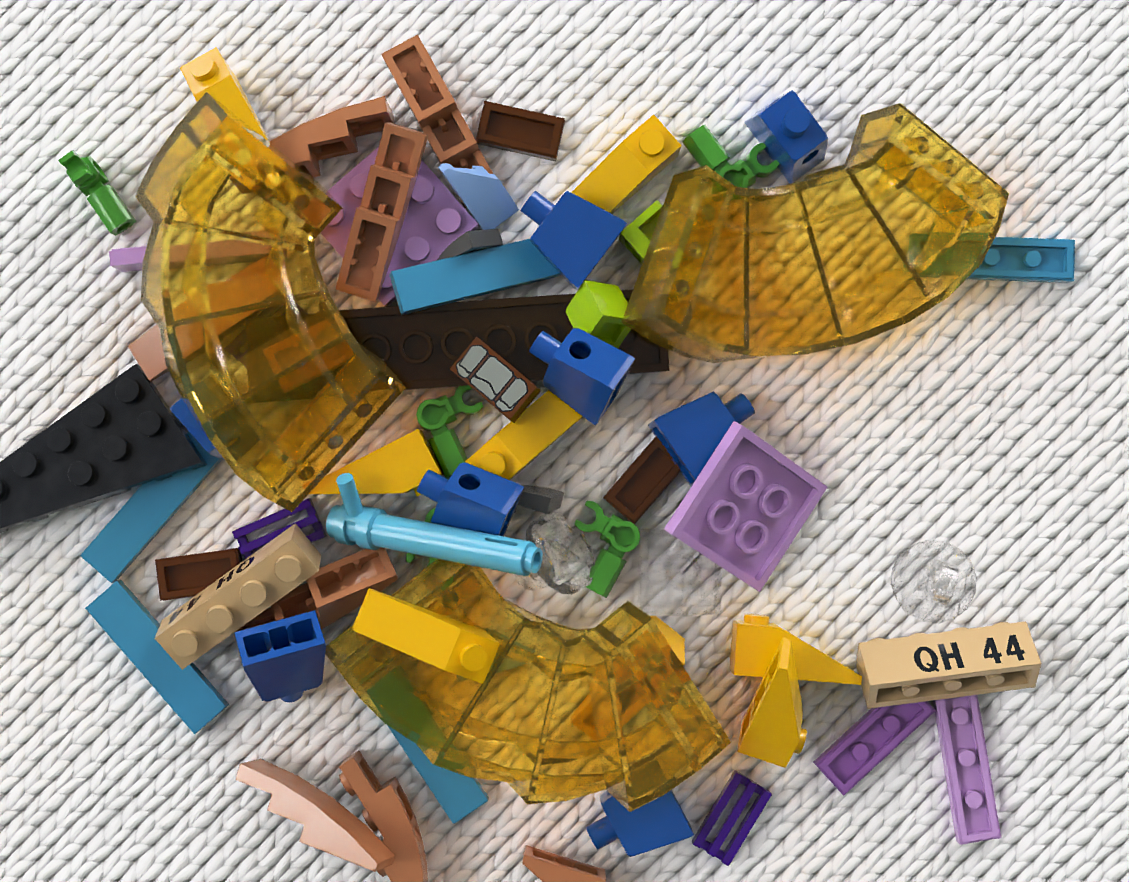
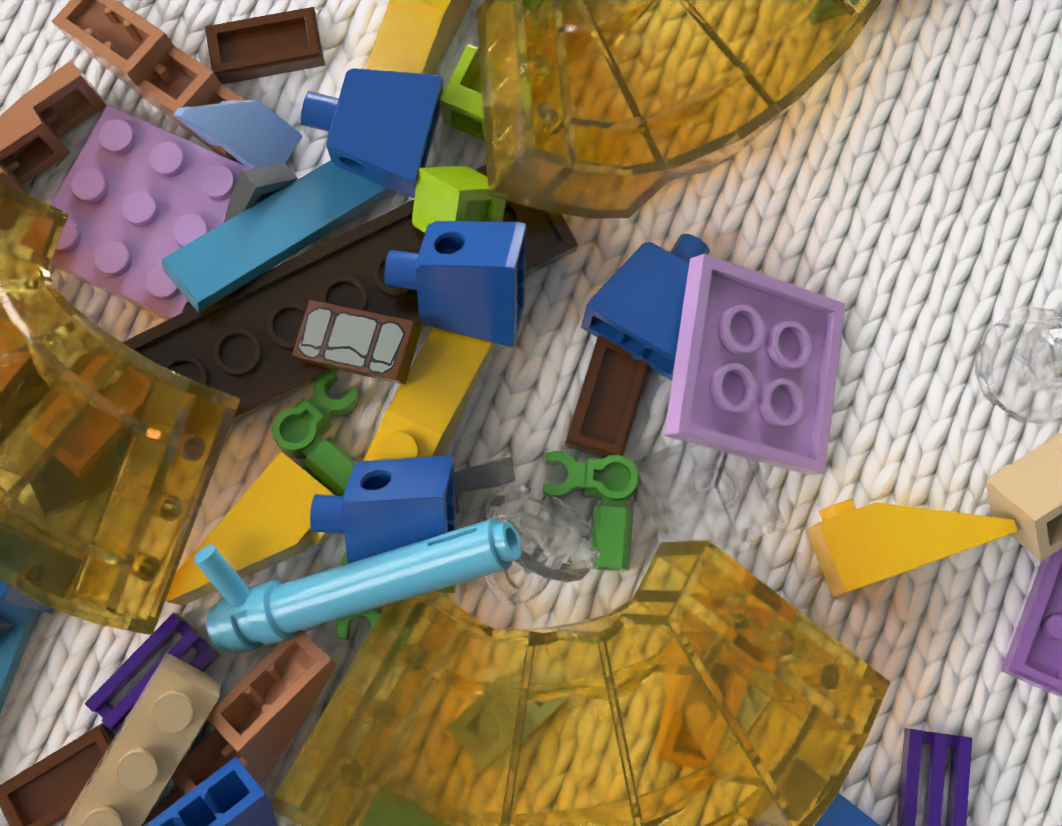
camera: 25 degrees left, 10 degrees down
(381, 212) = (123, 200): nougat slope -> none
(427, 635) = (402, 716): yellow slope -> none
(774, 717) = (925, 631): yellow slope -> none

